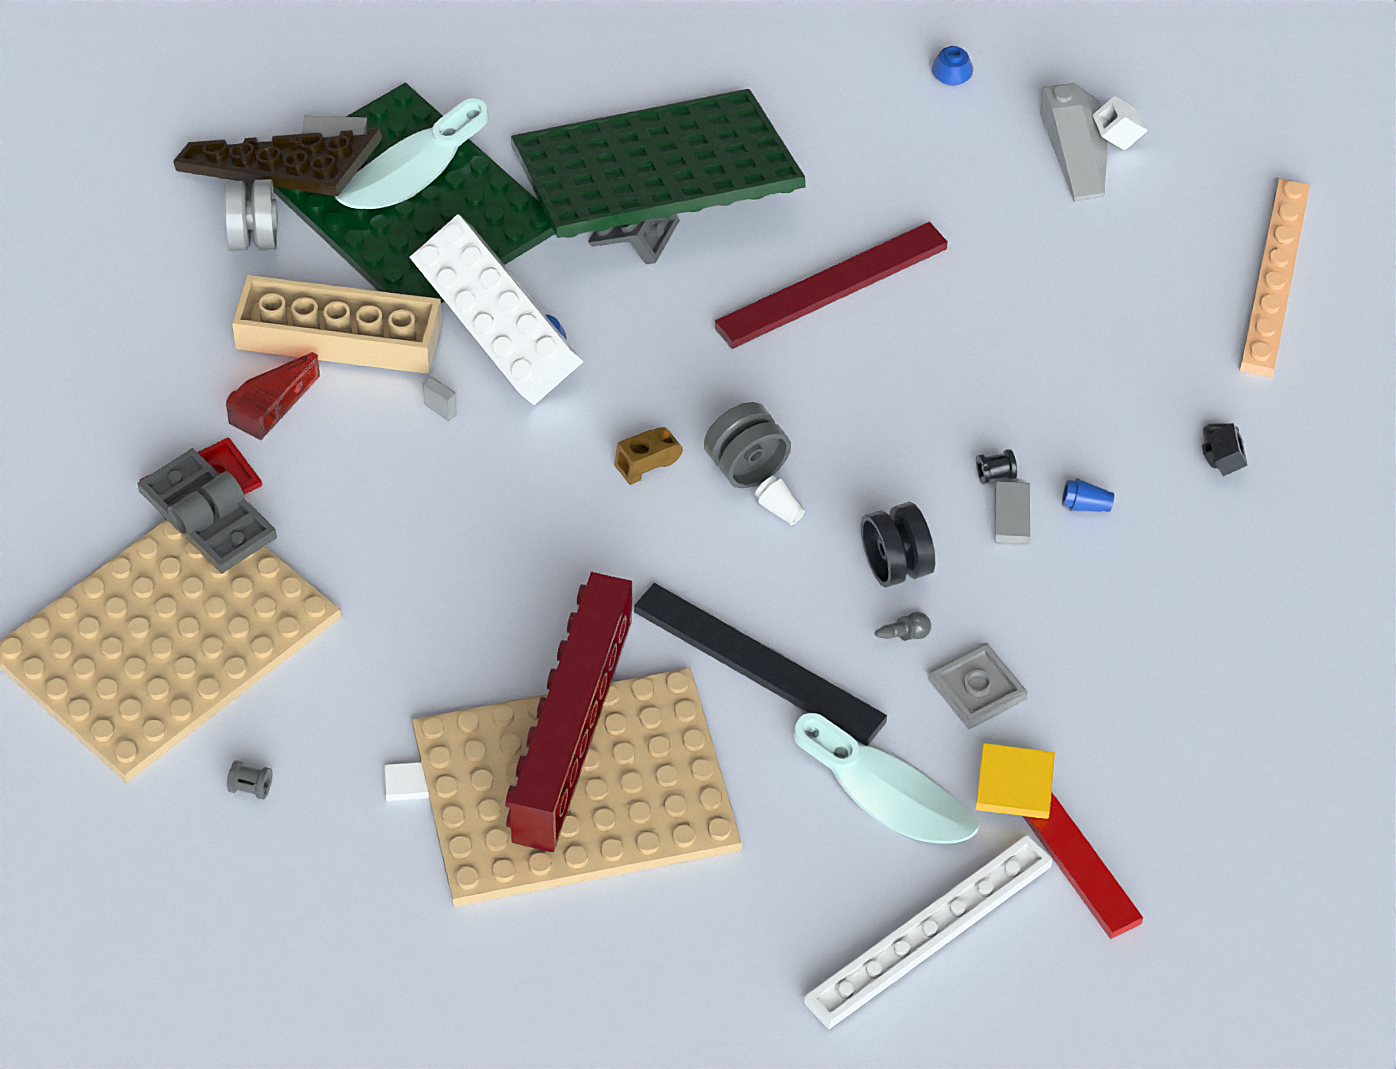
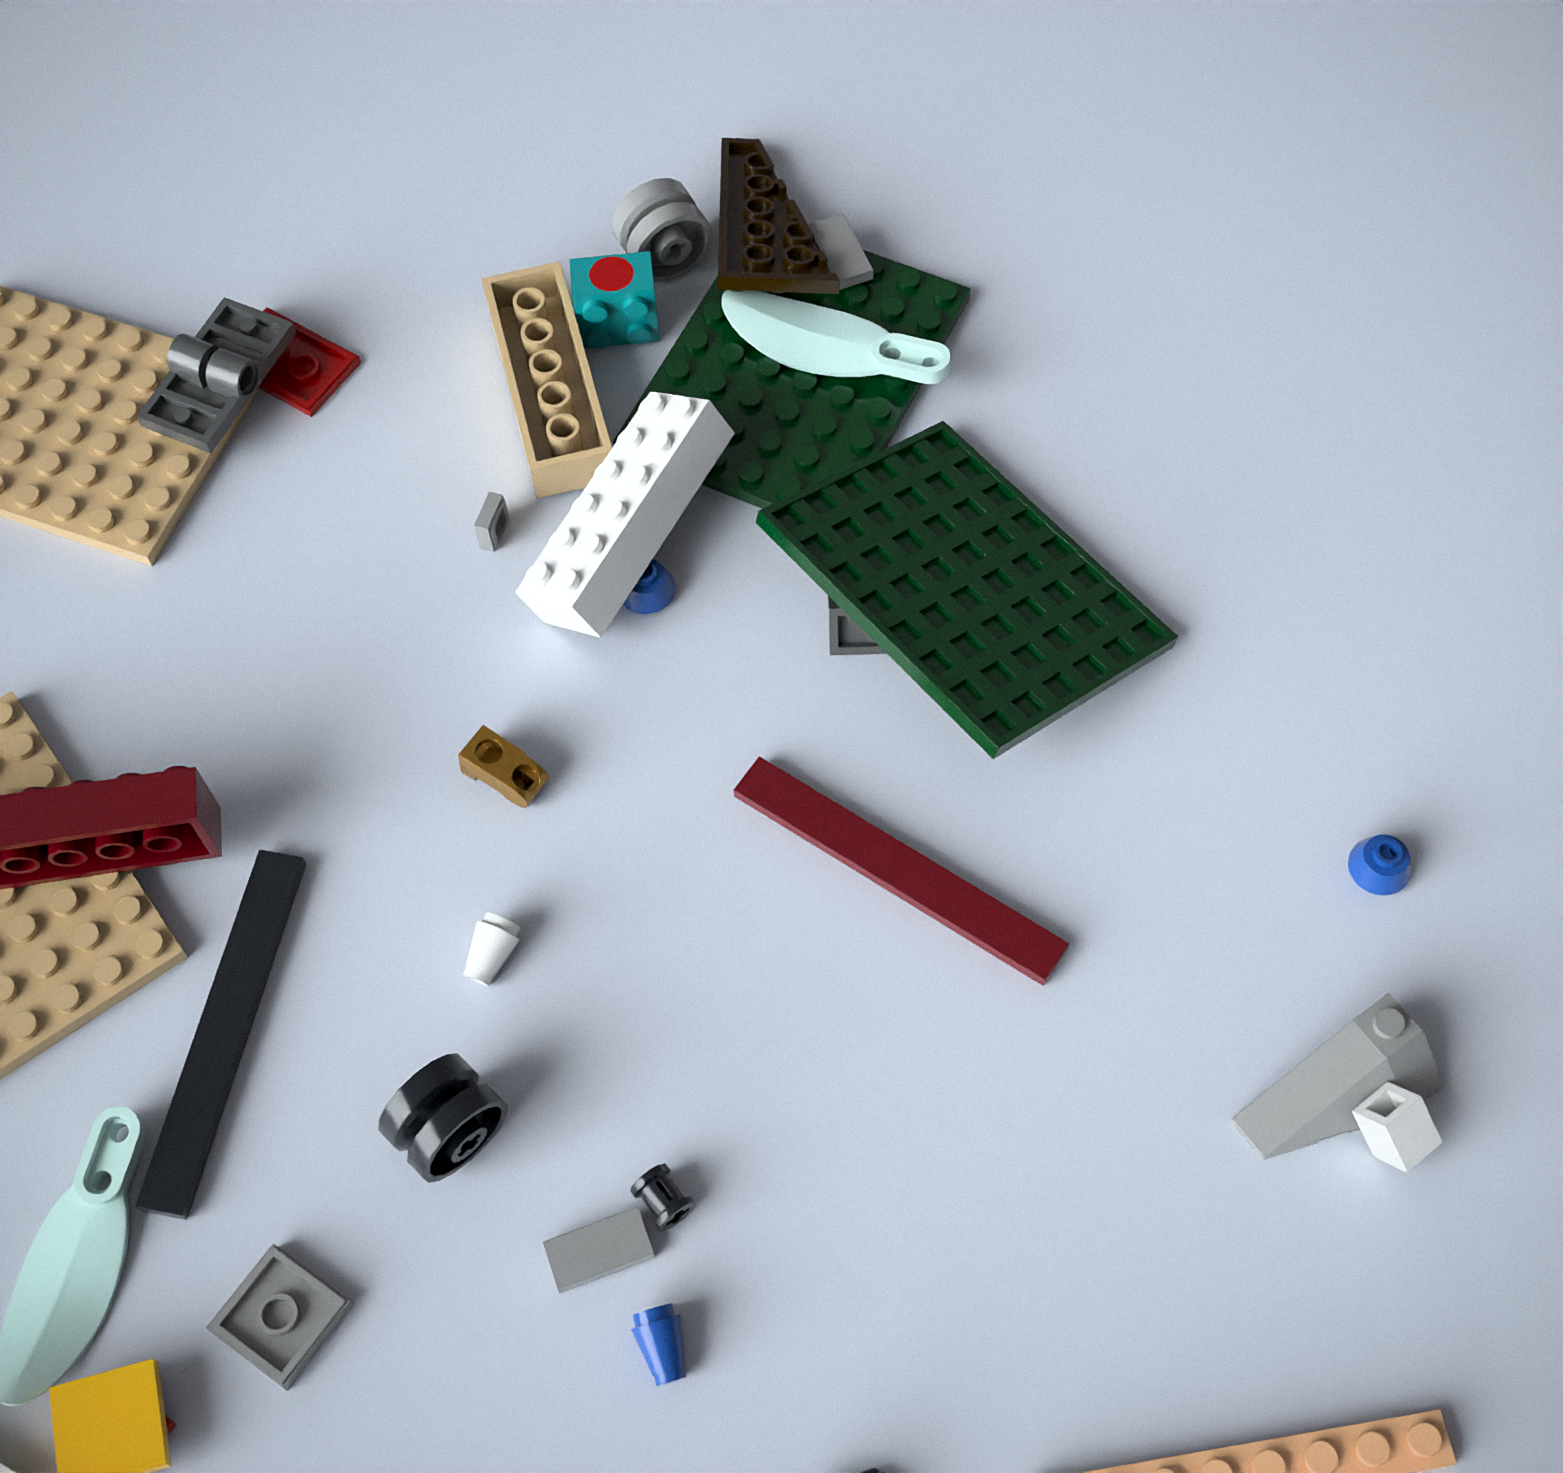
camera: 70 degrees right, 10 degrees up
(269, 396) = (417, 363): clear red slope -> none
(299, 251) = (614, 299): none -> teal brick
(747, 445) = (539, 869): dark grey wheel -> none
(914, 626) = (354, 1196): dark grey bar -> none

